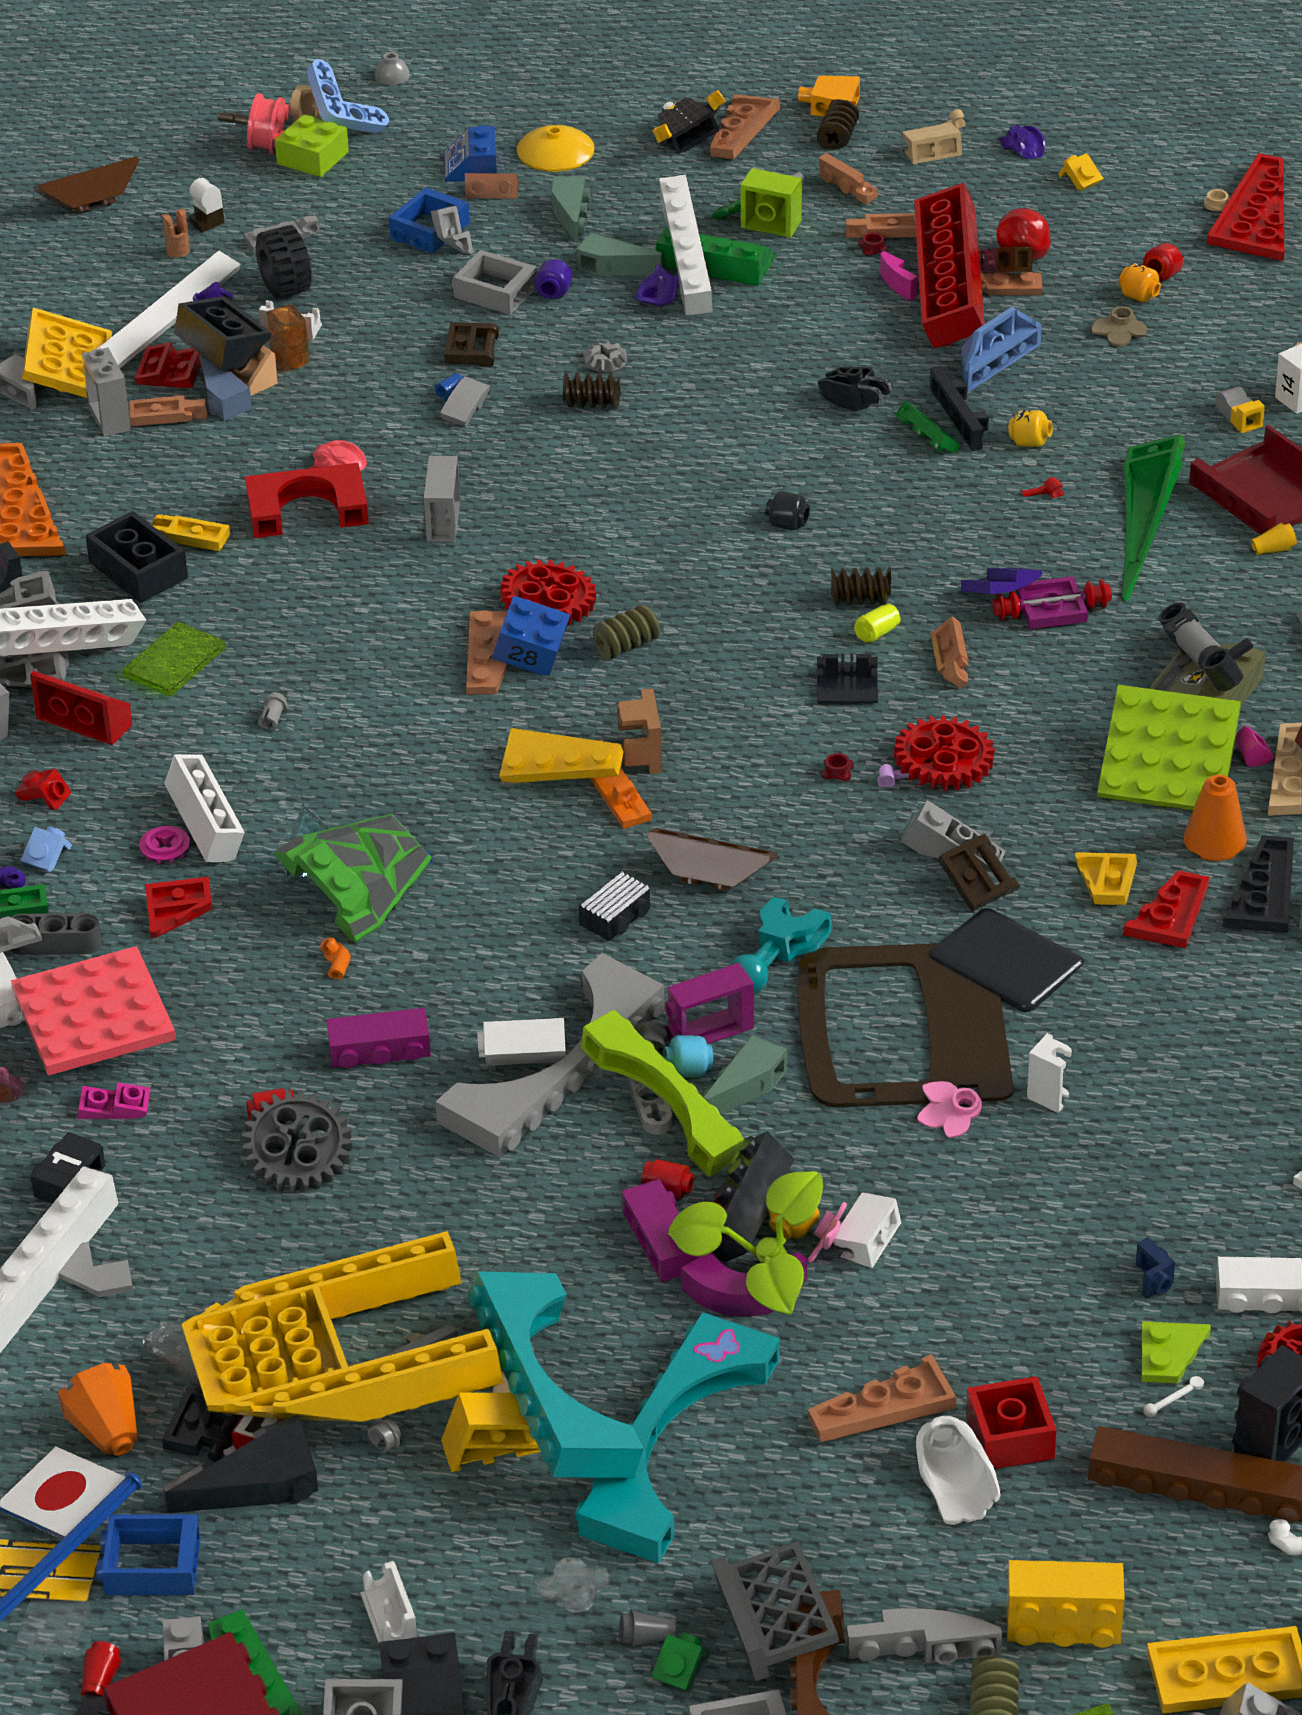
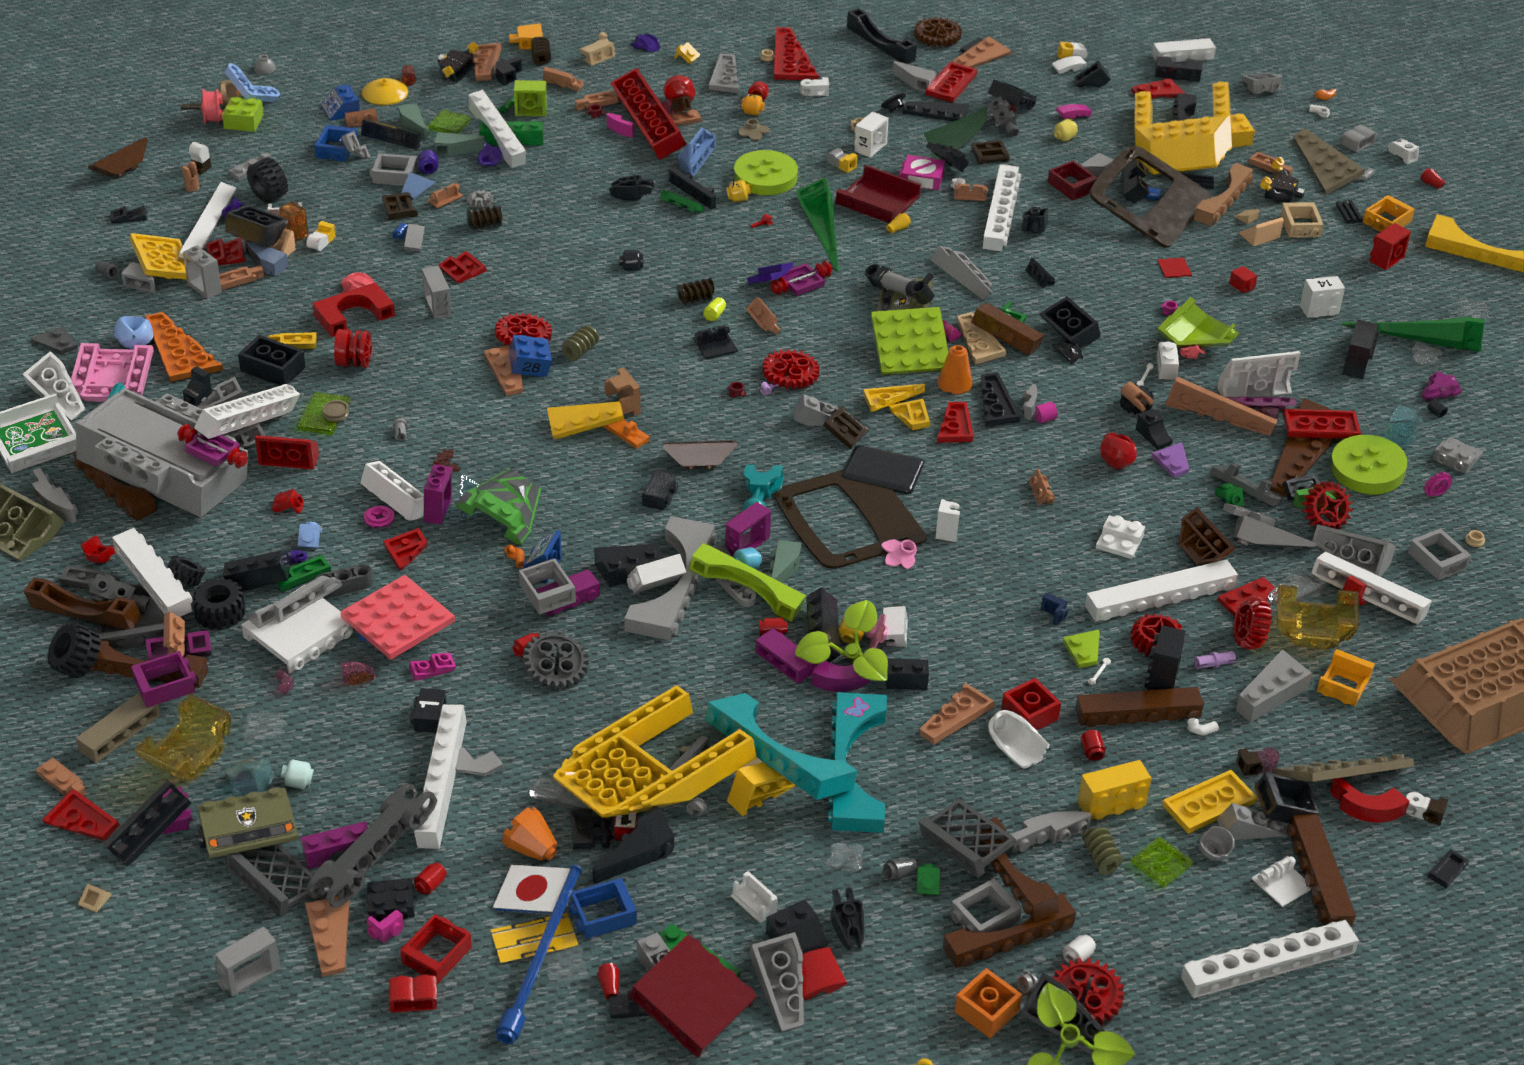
camera: 25 degrees left, 0 degrees up
(53, 276) = (122, 215): none -> black slope
(189, 658) = (335, 410): none -> dark tan piece
(252, 850) = (437, 494): none -> magenta window
(264, 563) = (351, 348): none -> red wheel
(315, 772) = (445, 458): none -> clear red animal
(323, 371) = (322, 236): none -> leg
(340, 1040) = (552, 598): none -> light grey window
(371, 974) = (545, 550): none -> blue slope
(485, 1001) = (619, 561): none -> black wedge
(514, 467) = (462, 267): none -> red slope
(515, 314) = (416, 185): none -> light blue slope
(522, 221) = (390, 134): none -> black hinge
(540, 344) = (441, 198): none -> nougat hinge
(604, 127) = (408, 75): none -> clear red piece
(628, 219) = (449, 122): none -> clear neon green tile
(764, 146) = (507, 70): none -> black brick
(839, 1313) = (907, 674): none -> black brick
(1075, 835) = (882, 397): none -> yellow wing
(1084, 1517) = (1093, 745): none -> red brick
(1097, 405) = (766, 171): none -> lime brick
(1125, 221) = (725, 75): none -> light grey wing
(1256, 1057) = (1041, 488): none -> nougat hinge
(1267, 272) = (815, 87): none -> white leg

